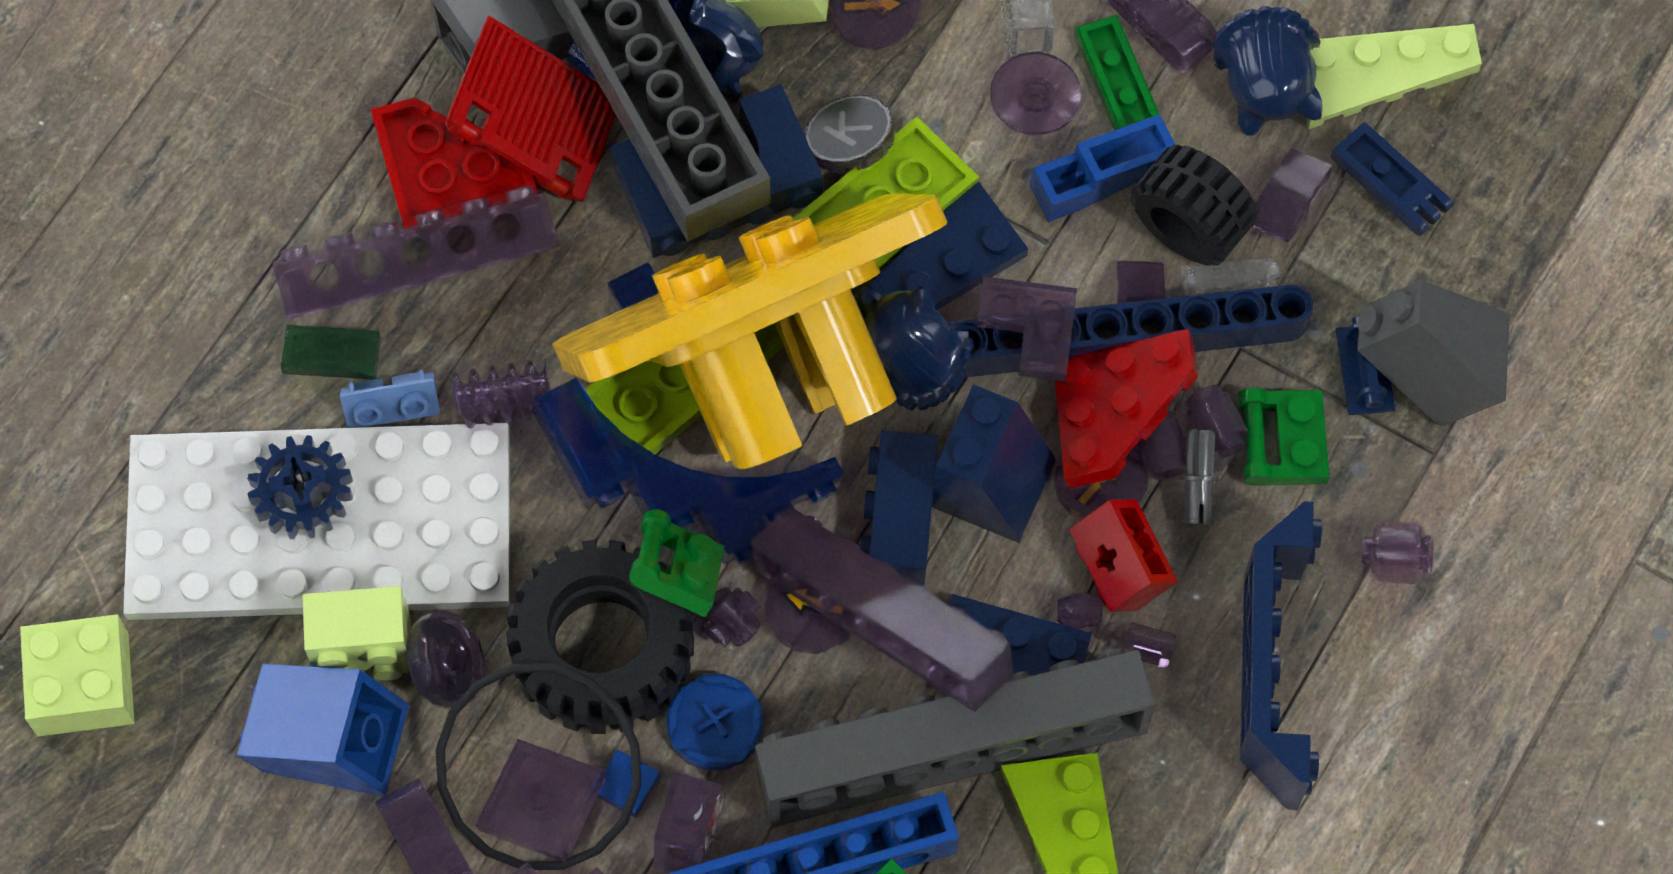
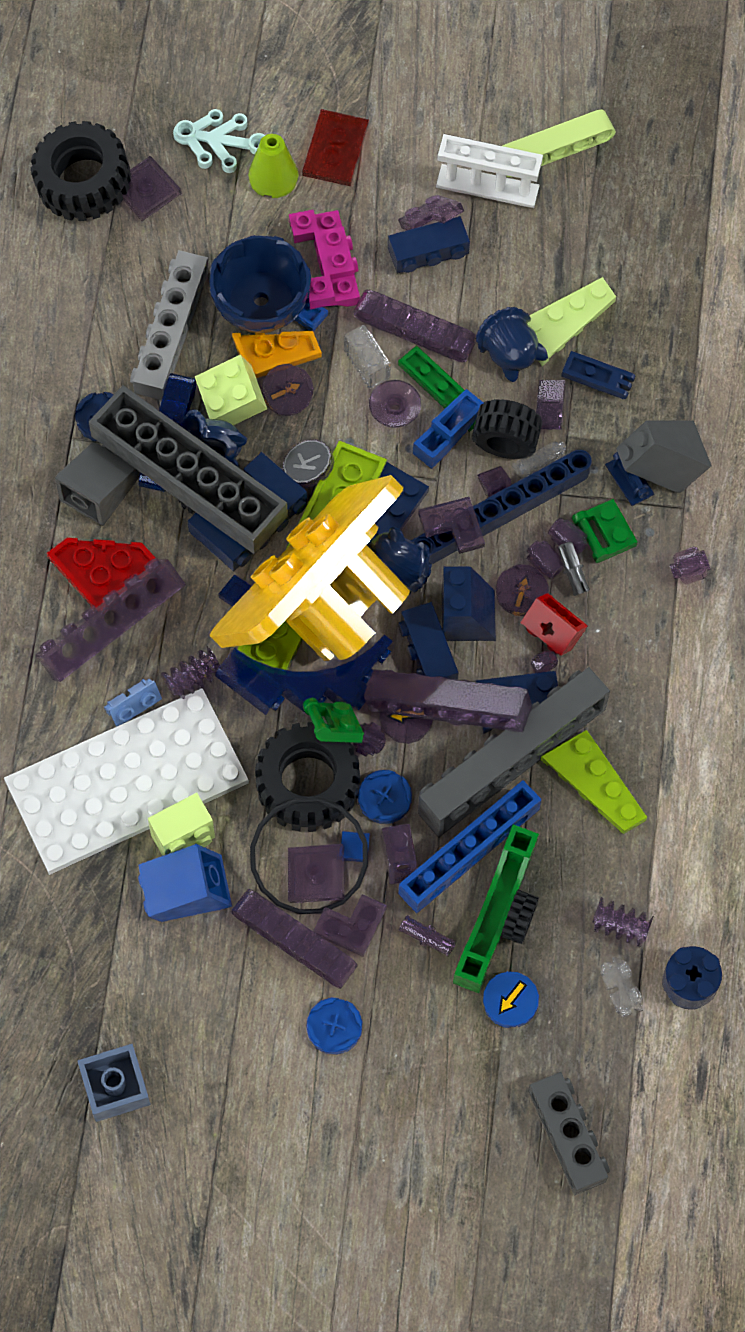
camera: 25 degrees left, 0 degrees up
(77, 675) = (41, 912): yellowish green brick -> none
(282, 488) = (104, 772): dark blue gear -> none
(331, 352) = (89, 690): clear green plate -> none
(444, 657) = (232, 822): clear purple tile -> none
(534, 109) = (141, 516): red window -> none
(1117, 400) = (515, 546): red plate -> none
(1153, 644) = (583, 662): slope -> none
(1276, 759) = (680, 695): dark blue slope -> none

